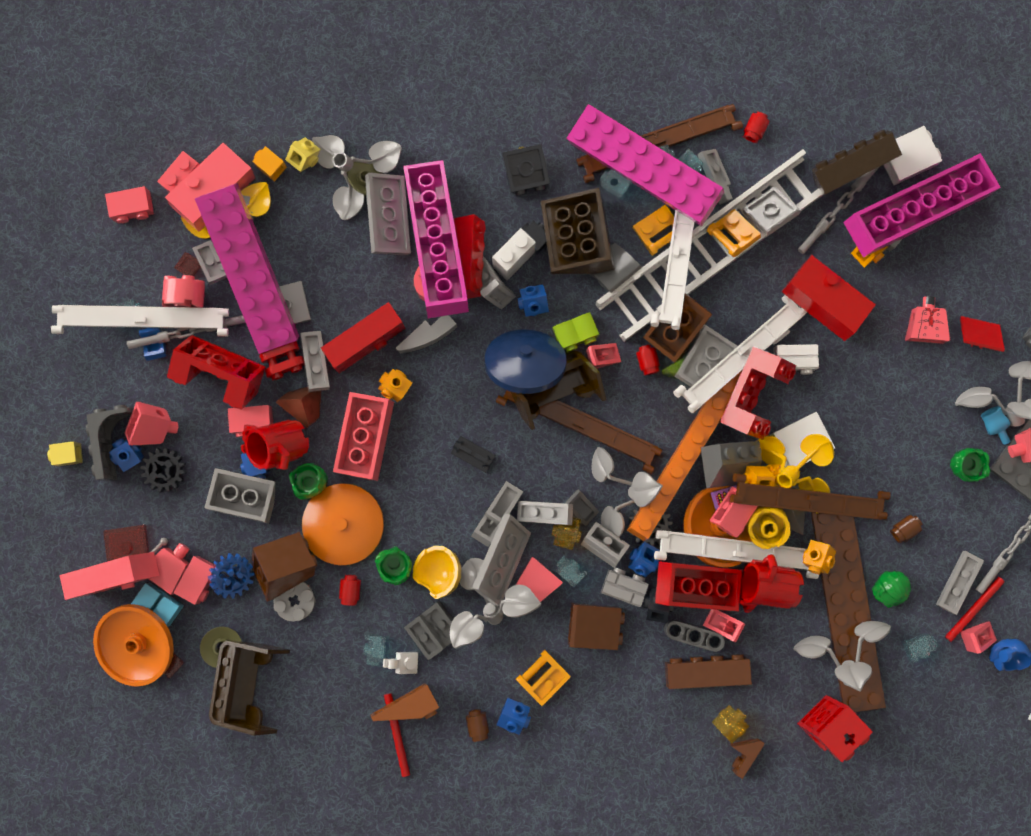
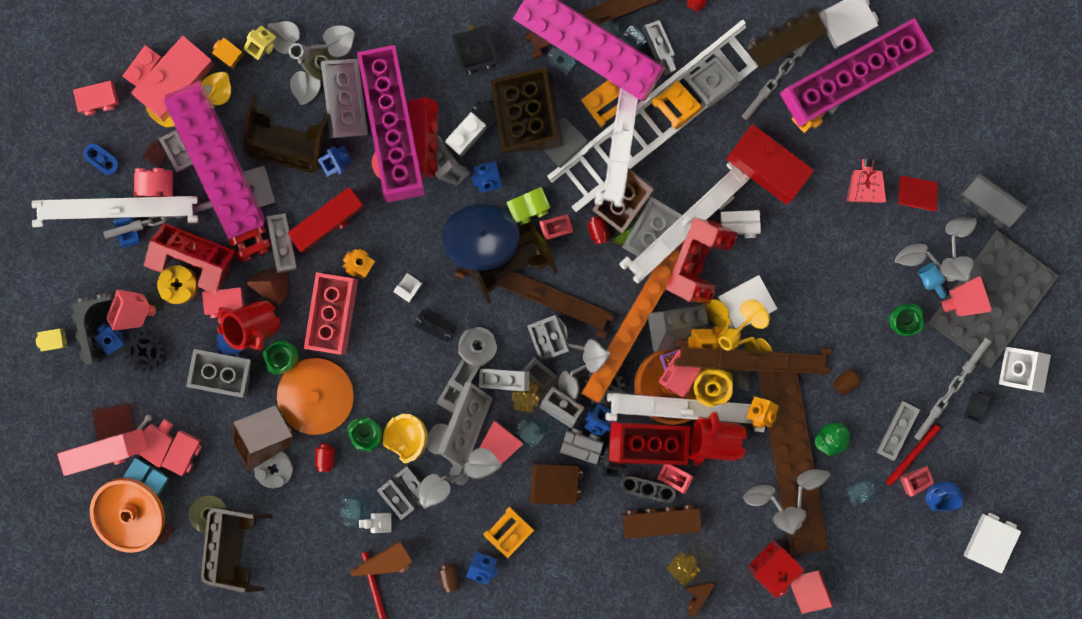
camera: 10 degrees right, 5 degrees up
(132, 268) = (101, 159): none -> blue plate
(192, 396) = (177, 295): none -> yellow brick
(242, 570) = (223, 443): blue gear -> none
(320, 260) = (282, 144): none -> dark brown windscreen
(375, 277) = (335, 160): none -> blue brick
(427, 335) = (385, 214): light grey slope -> none
(446, 413) = (408, 287): none -> white panel
(506, 480) = (473, 356): none -> light grey plate
(593, 470) = (548, 338): none -> slope
(871, 757) = (811, 592): none -> piece

